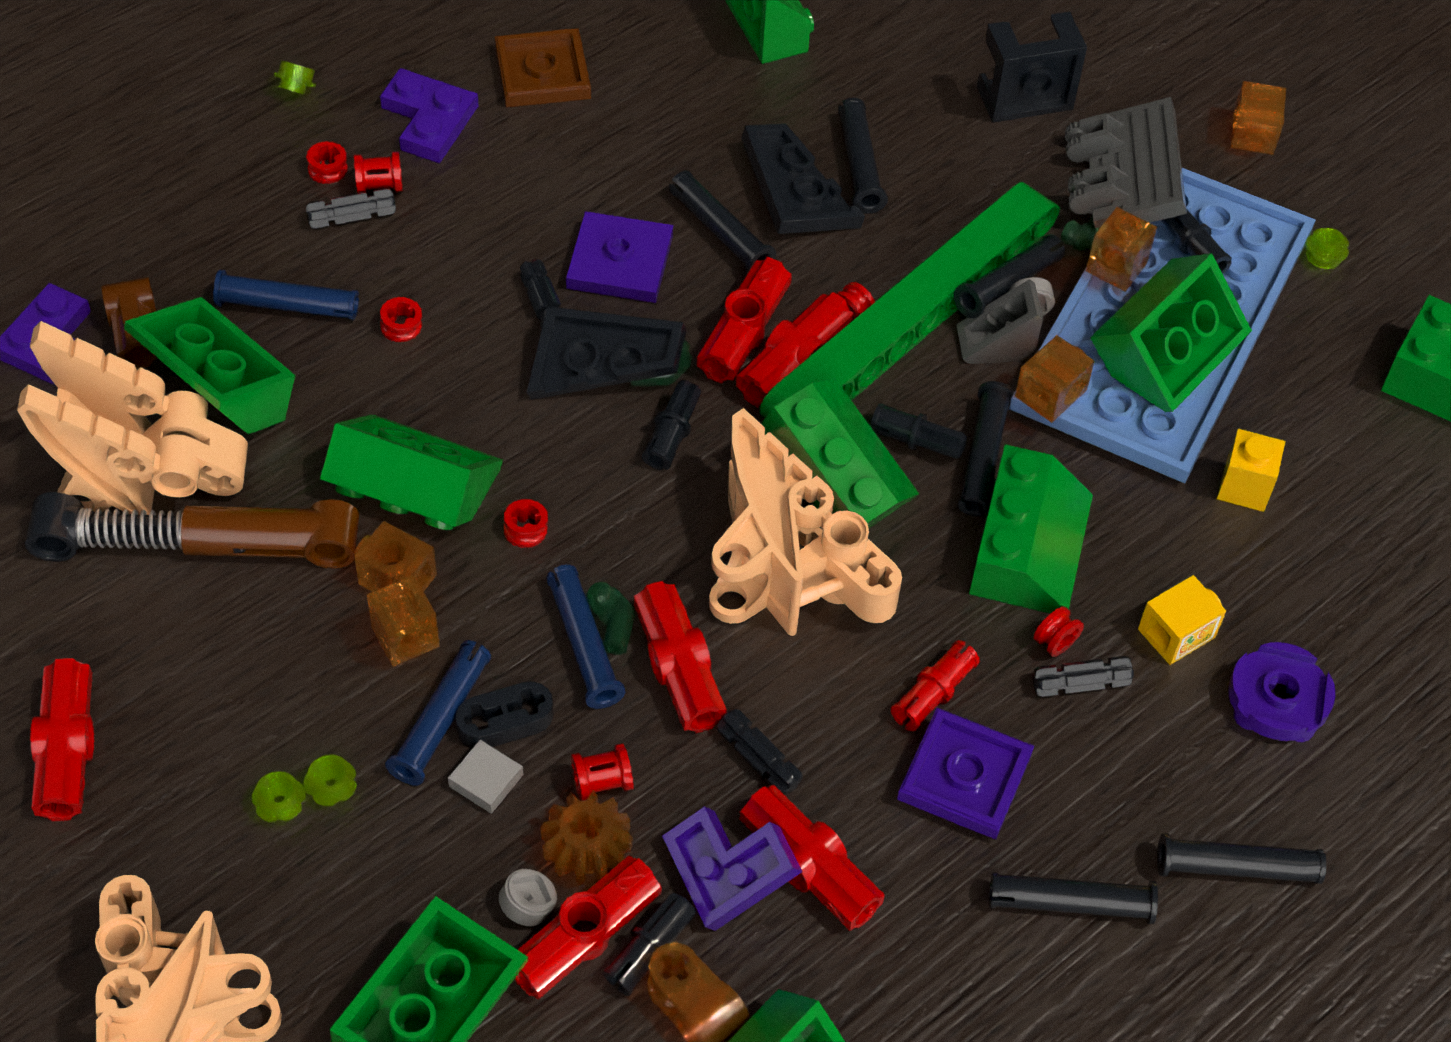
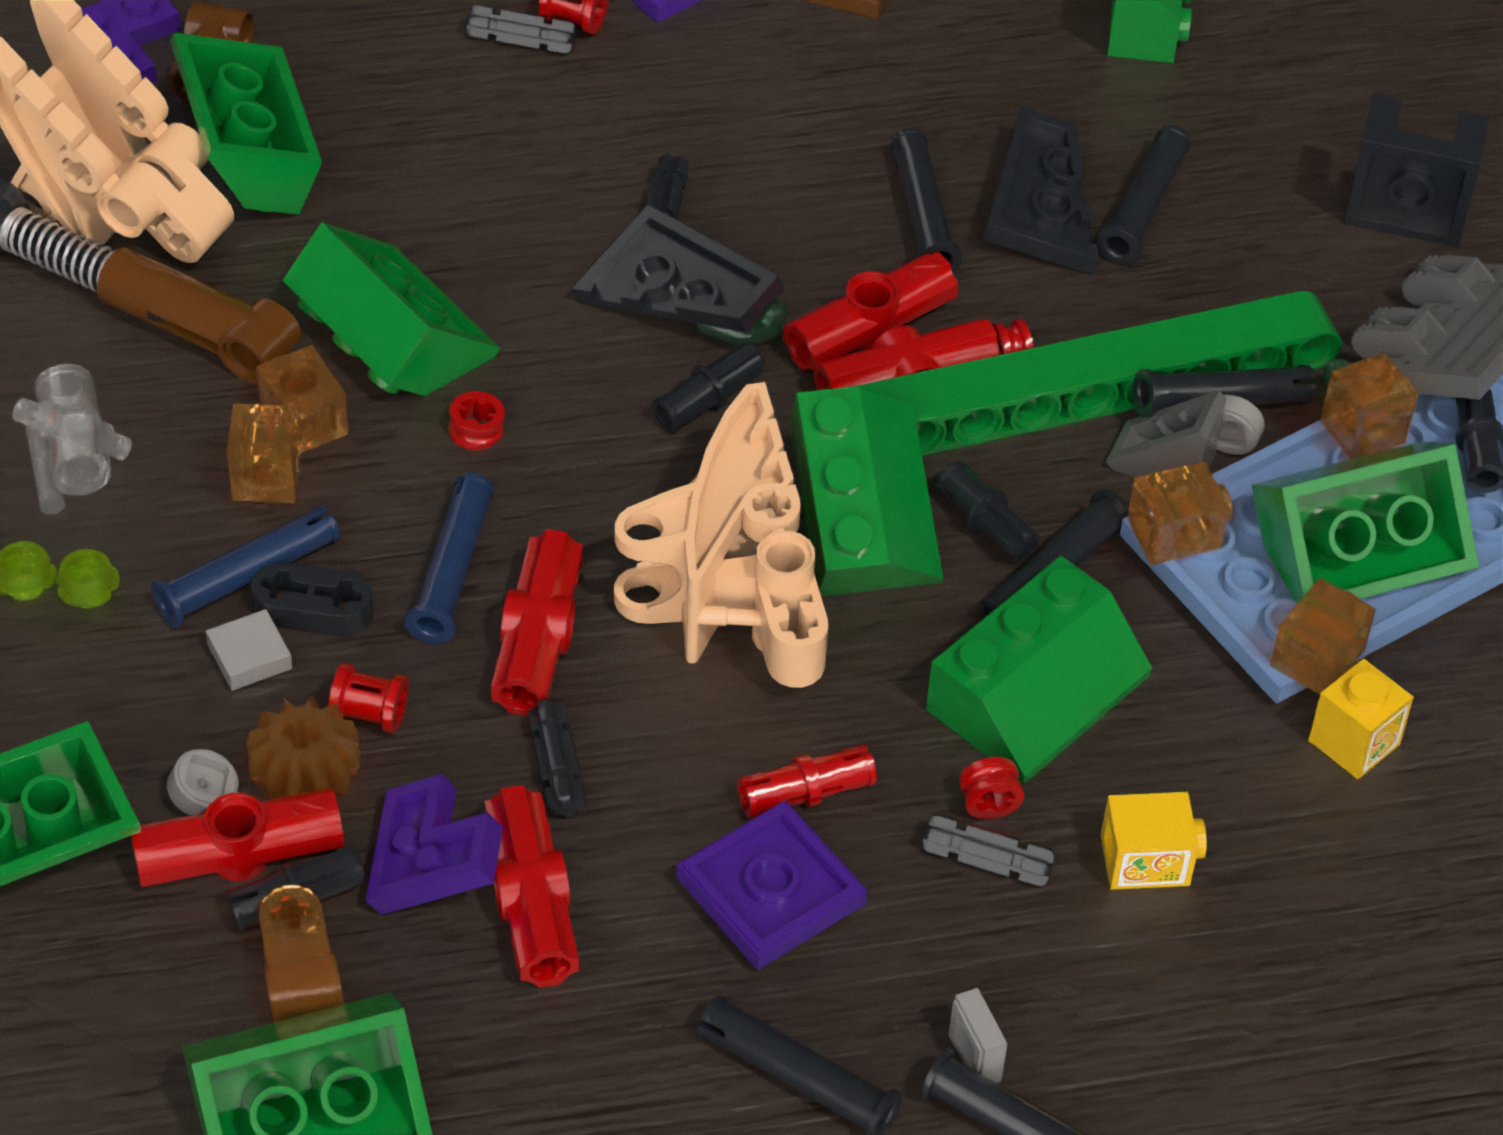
camera: 30 degrees right, 5 degrees down
(243, 677) = (67, 436): none -> clear pin
(285, 296) = (384, 89): dark blue pin -> none
(396, 307) = (488, 150): red bush -> none
(615, 613) = (504, 549): clear green arm -> none
(620, 257) = (783, 194): dark purple plate -> none
(1173, 814) = (977, 1035): none -> light grey tile
(1202, 425) = (1322, 636): none -> clear orange brick
(1275, 717) = (1207, 1006): dark purple plate -> none

